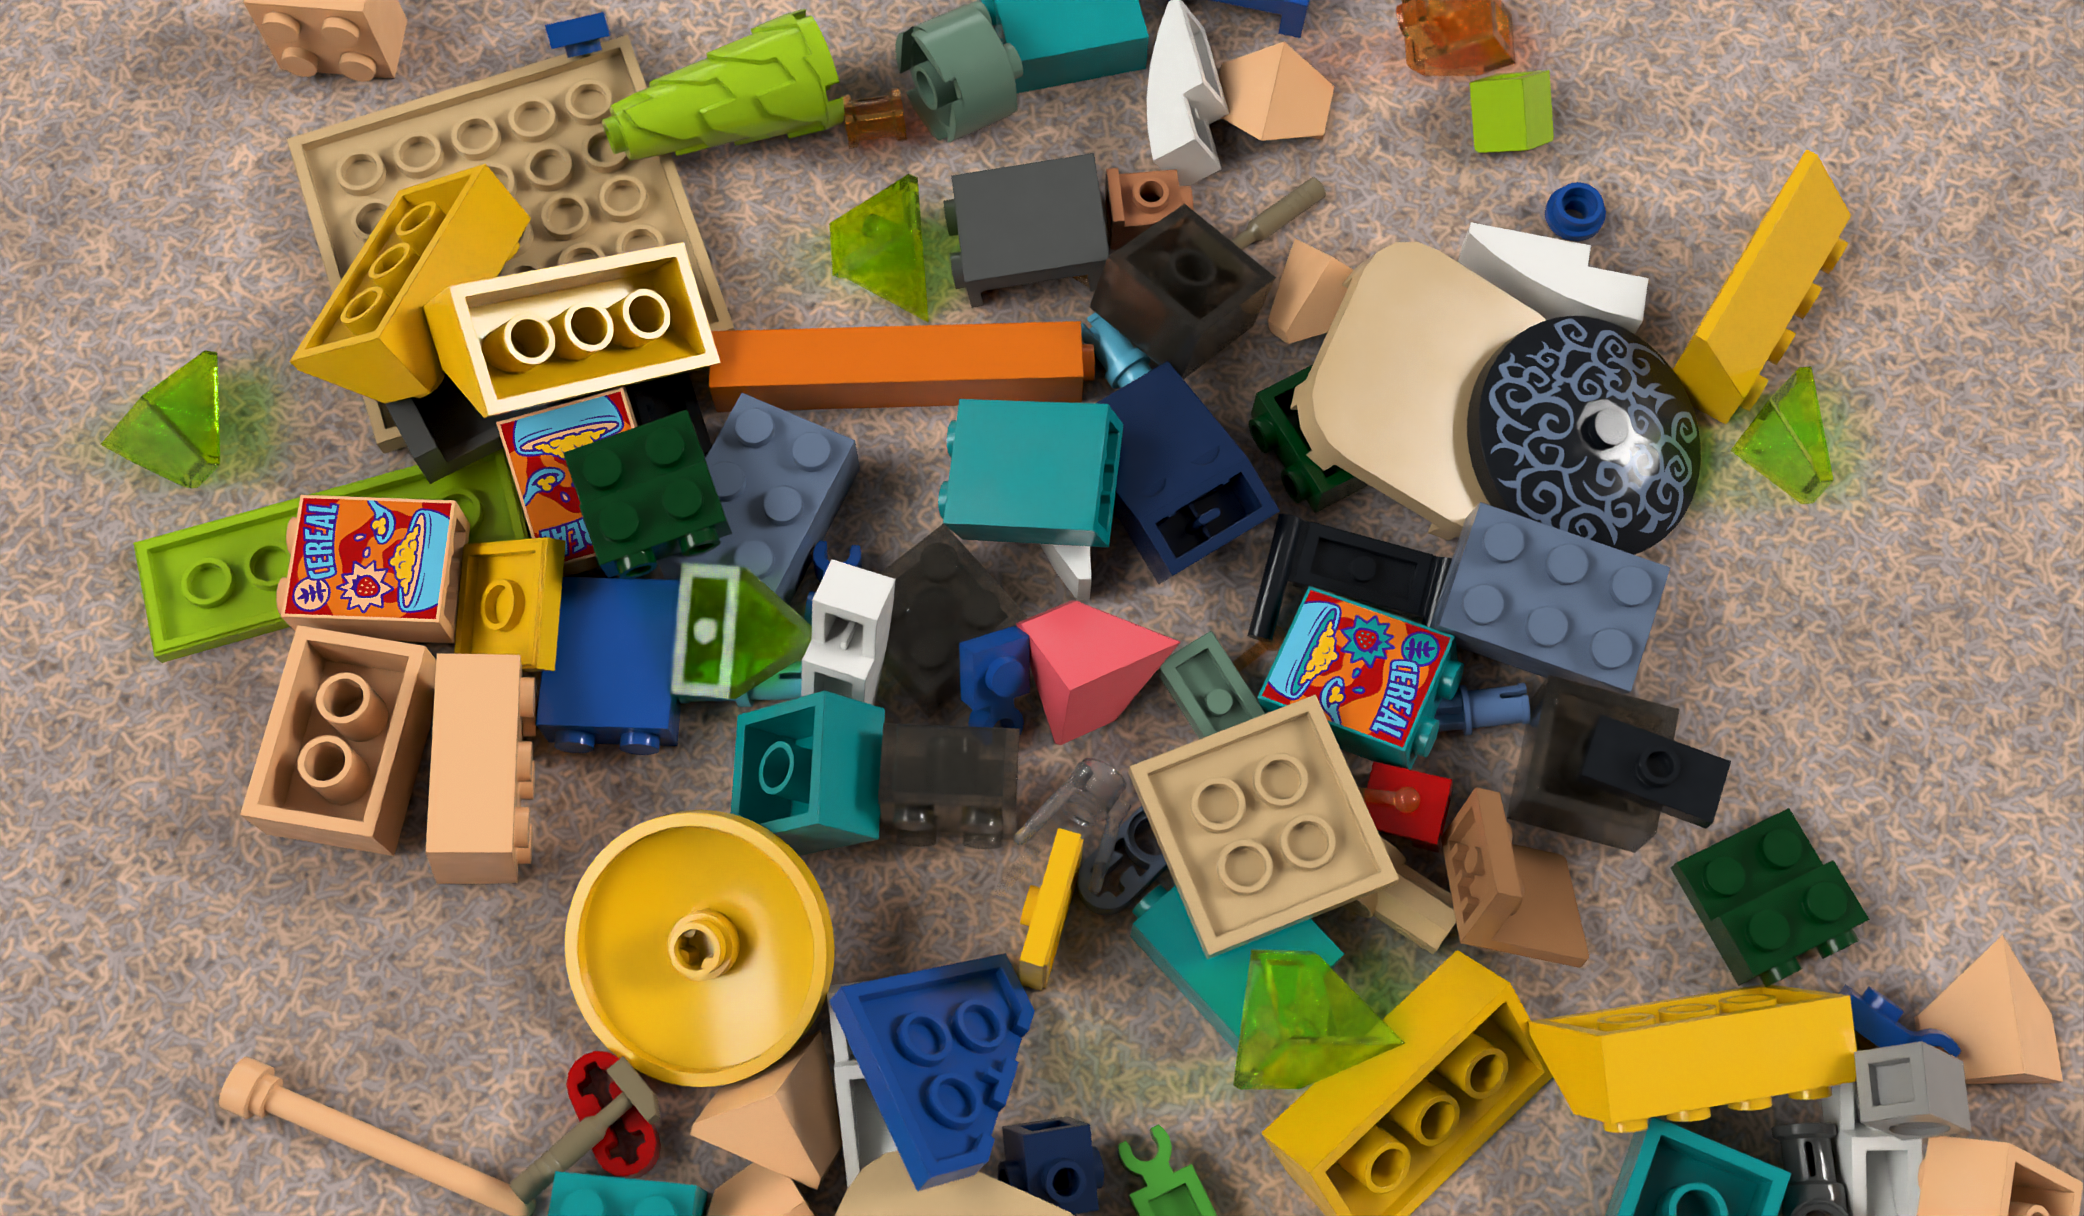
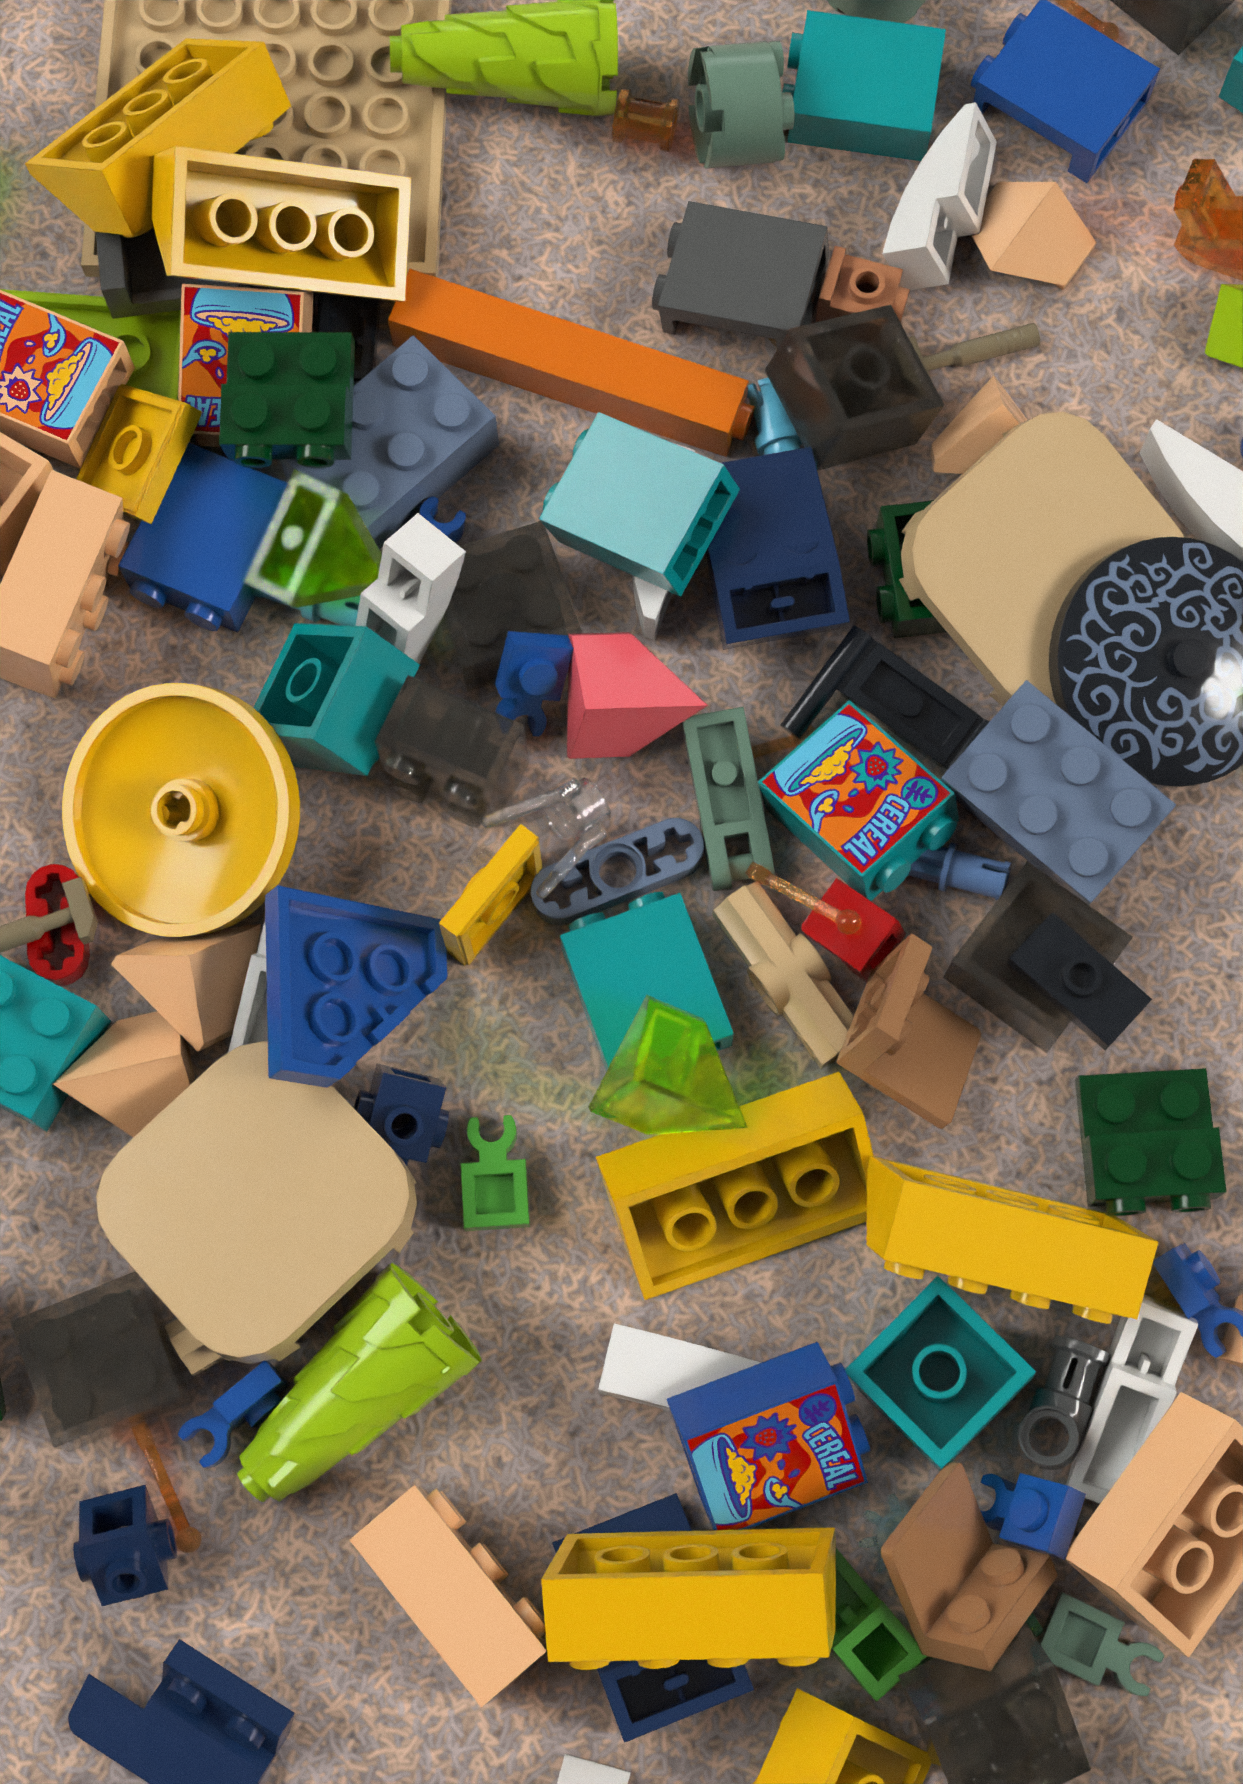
camera: 25 degrees right, 5 degrees up
(883, 246) = (604, 247): clear neon green slope -> none
(1262, 826) = (706, 893): tan plate -> none
(1912, 1091) = (1176, 1345): light grey brick -> none

